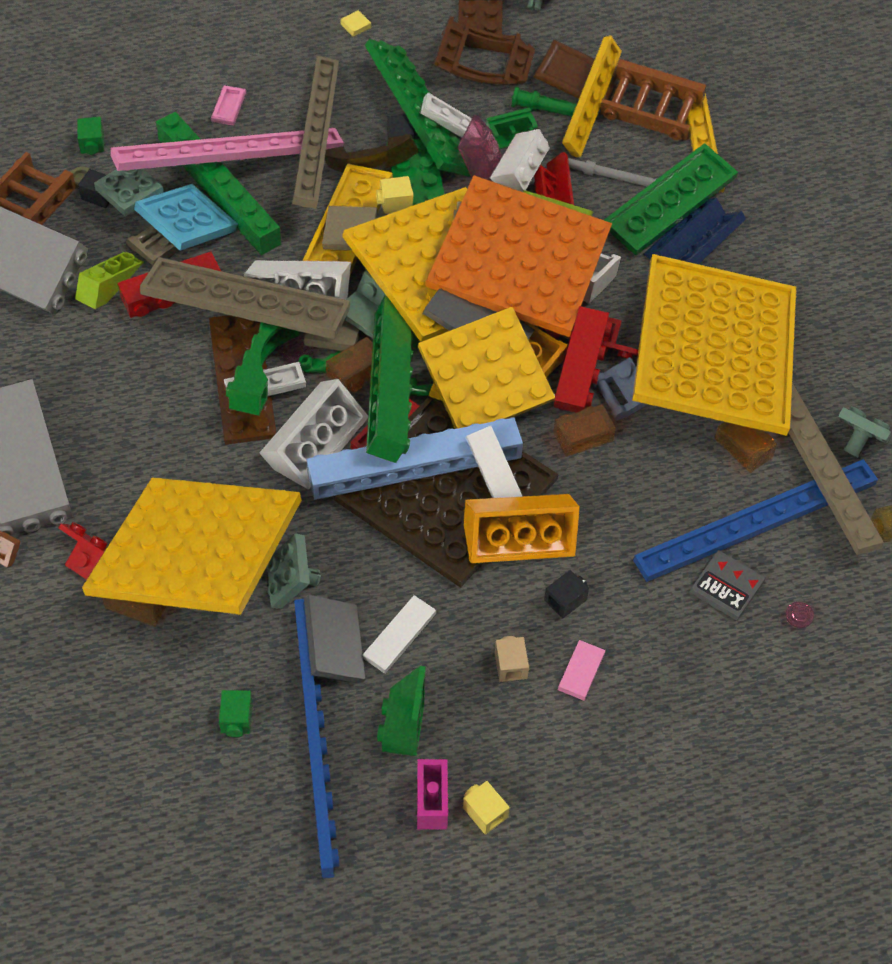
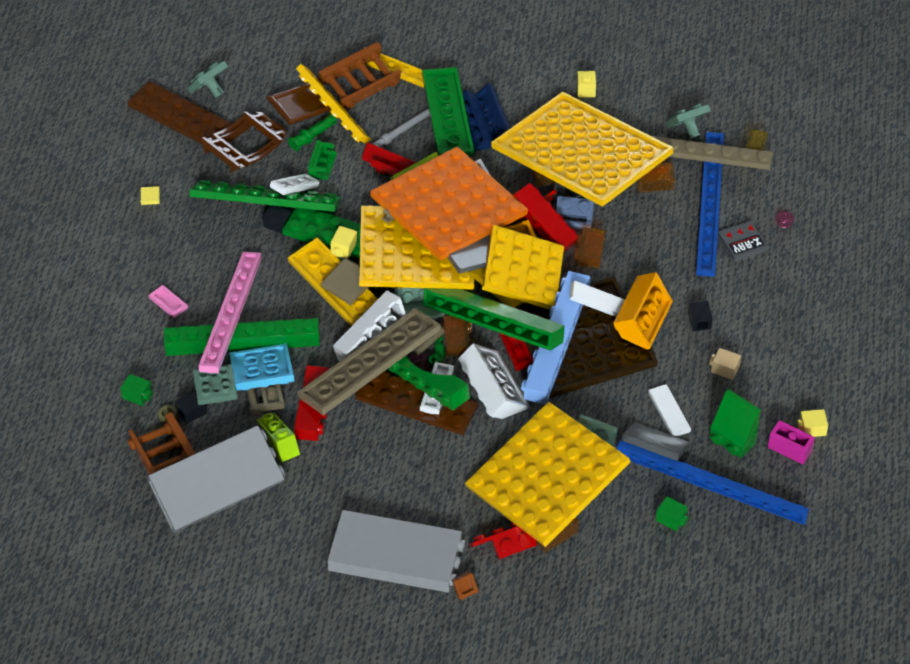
camera: 55 degrees left, 5 degrees down
(315, 133) = (247, 258): dark tan plate -> none
(397, 151) = (279, 261): dark brown slope -> none
(479, 149) = (339, 180): clear pink slope -> none
(521, 160) = (363, 166): white brick -> none
(581, 670) = (752, 337): bright pink tile -> none
(828, 303) = (586, 84): none -> light yellow brick

